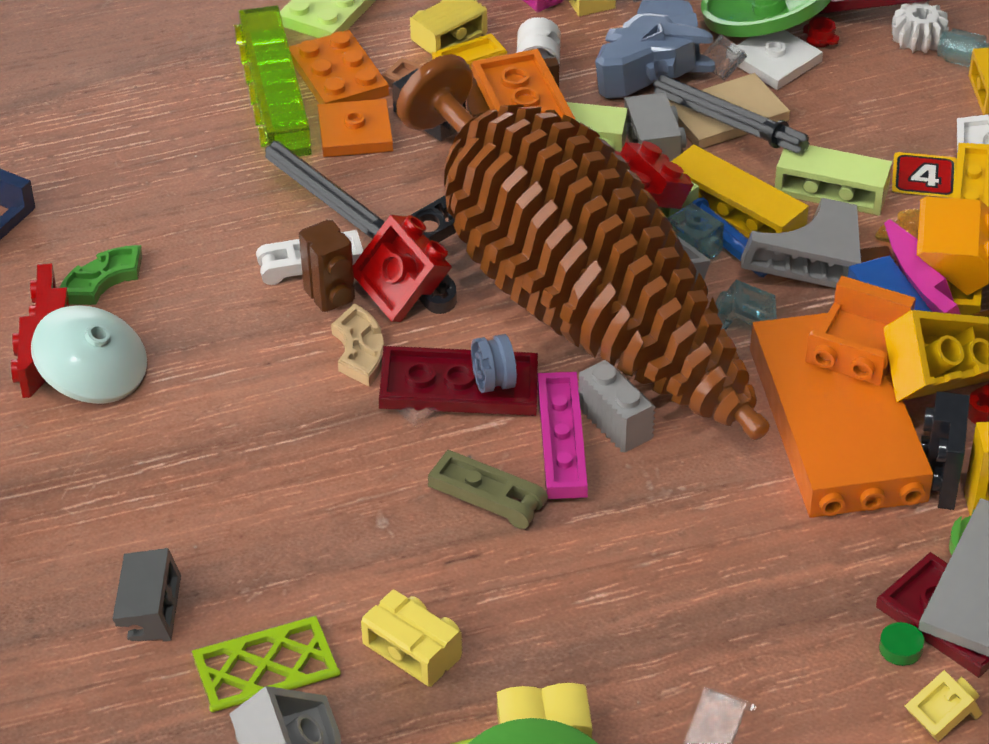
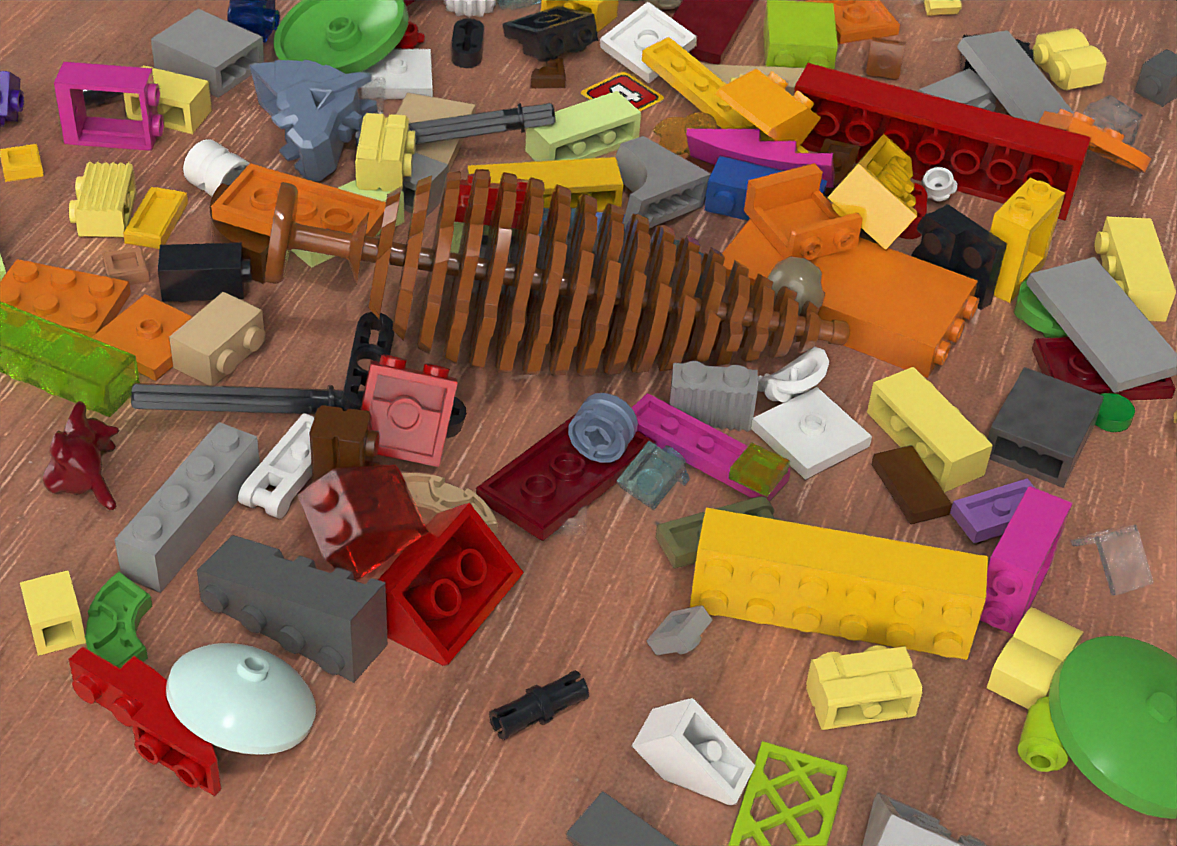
camera: 55 degrees left, 0 degrees up
(76, 239) = (53, 612): none -> light yellow brick
(185, 333) = (297, 605): none -> dark grey wedge
(205, 165) = (77, 457): none -> dark red animal
(216, 234) = (187, 507): none -> light grey brick
(230, 489) = (539, 704): none -> black pin
(259, 584) = (693, 751): none -> white slope
(279, 384) = (447, 584): none -> red slope
(283, 307) = (362, 516): none -> clear red slope
(363, 518) = (680, 631): none -> light grey plate
(381, 153) = (217, 339): none -> tan brick
(483, 567) = (839, 583): none -> yellow brick
(502, 420) = (653, 474): none -> clear light blue bracket
(558, 467) = (759, 469): none -> clear neon green tile
(624, 631) = (1023, 558): none -> dark pink window
(635, 95) = (384, 152): none -> light yellow brick
(654, 482) = (811, 432): none -> white plate
(664, 565) = (911, 484): none -> reddish brown tile
(688, 439) = (795, 377): none -> white hat
(690, 627) = (990, 511): none -> medium lavender plate
(731, 541) = (922, 417): none -> light yellow brick
(767, 373) = (800, 277): none -> dark tan hair
(819, 605) = (1043, 426): none -> flat silver brick
(862, 64) = (467, 43): none -> black beam
(888, 126) = (550, 75): none -> reddish brown tile
(932, 93) = (553, 32): none -> black plate

